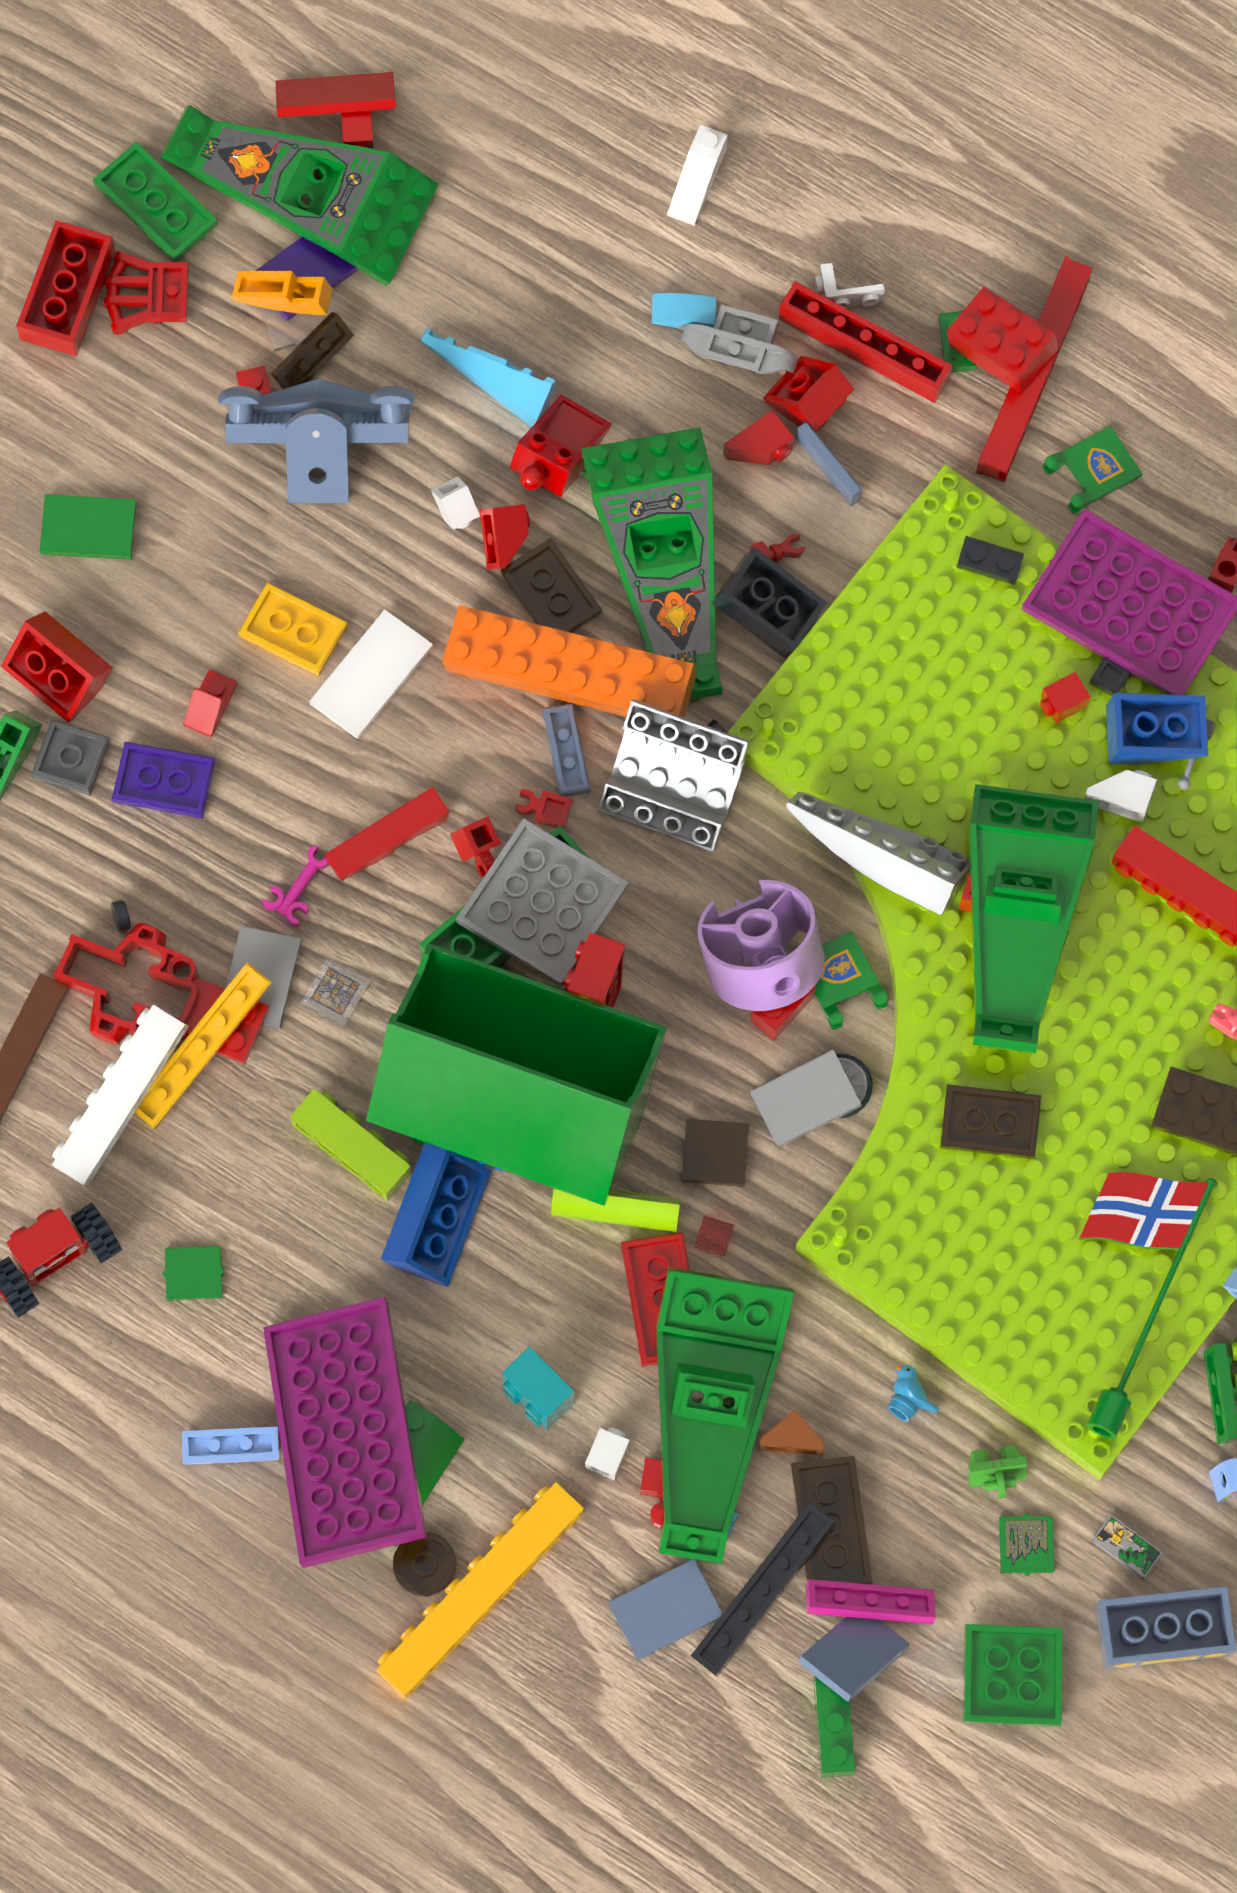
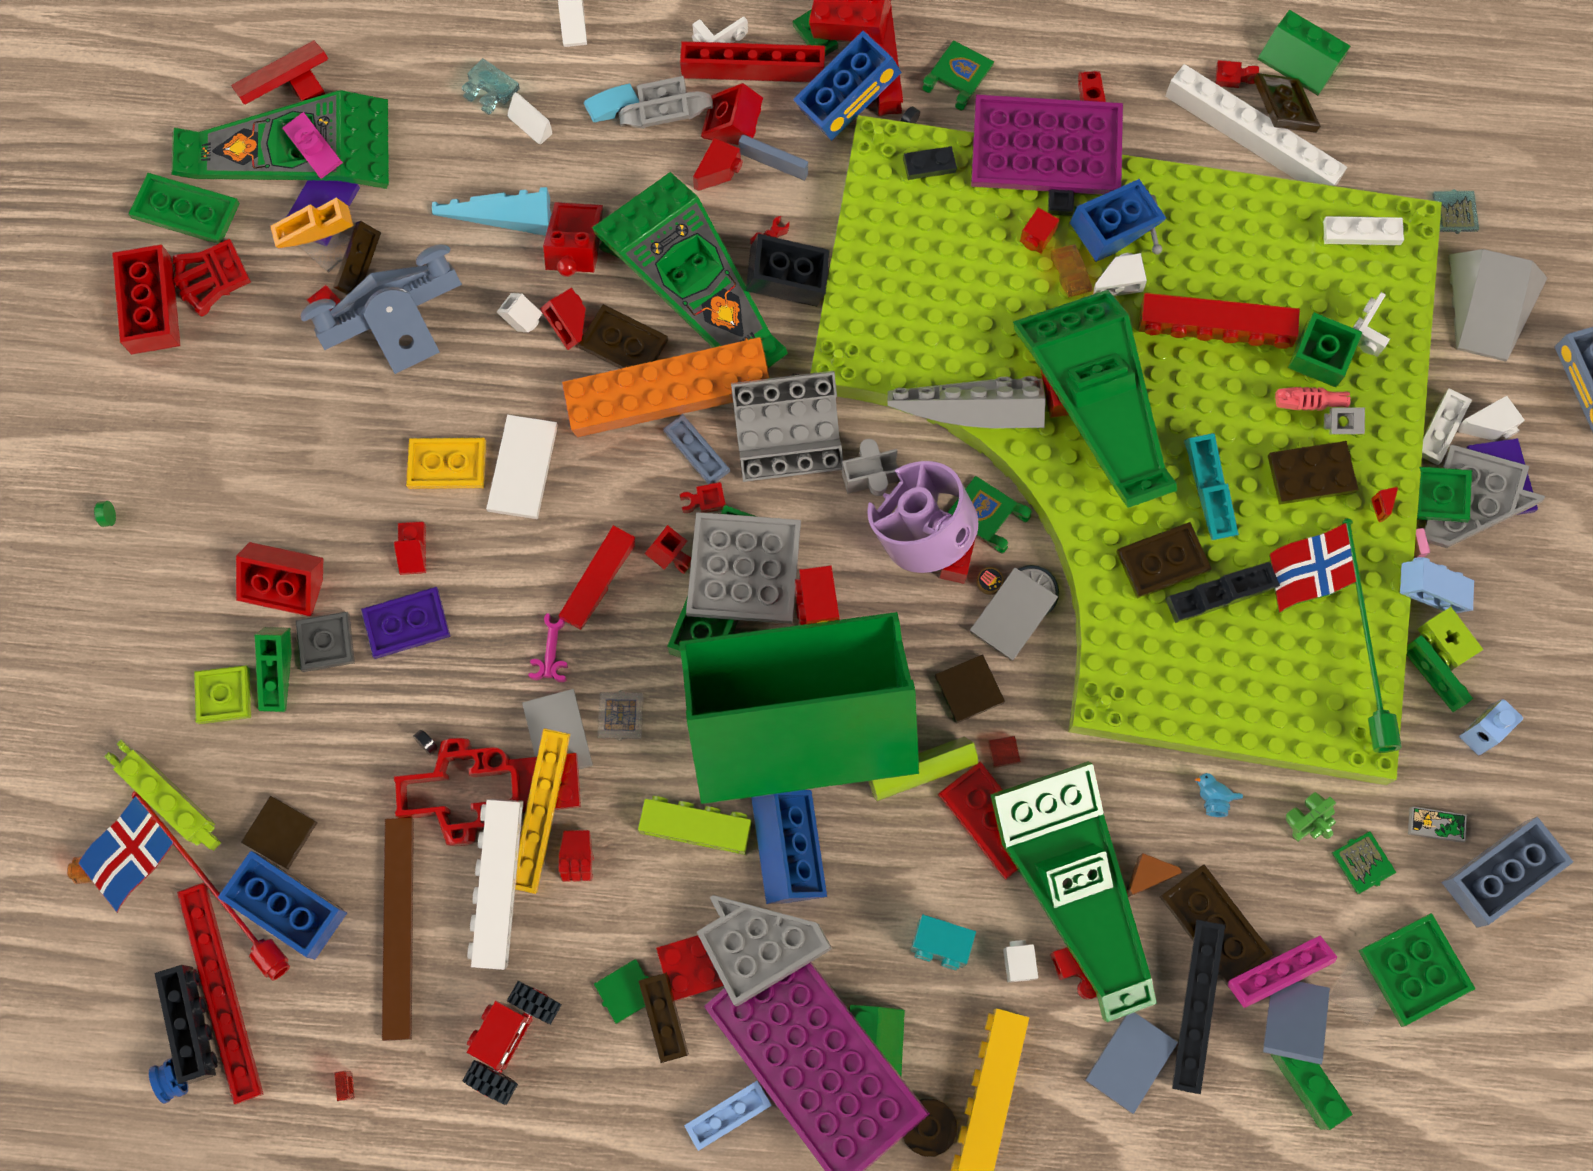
camera: 25 degrees left, 0 degrees up
(88, 527) = (251, 464): green tile -> none
(213, 1112) = (576, 856): none -> red hand
(217, 1316) = (663, 1017): none -> dark brown plate
(284, 1284) = (688, 968): none -> red plate
(328, 201) = (312, 145): none -> dark pink piece
(348, 1293) = (758, 946): none -> light grey wing
(565, 220) = (493, 81): none -> clear light blue plate
(582, 284) = (529, 119): none -> white slope
(738, 866) = (870, 470): none -> light grey piece
(801, 1050) = (989, 581): none -> tile
(950, 424) = (847, 85): none -> blue brick
(1007, 493) = (911, 115): none -> black tile
(1032, 1187) = (1222, 592): none -> black slope
(1075, 760) = (1071, 270): none -> clear orange slope
(1087, 1070) = (1211, 486): none -> teal slope

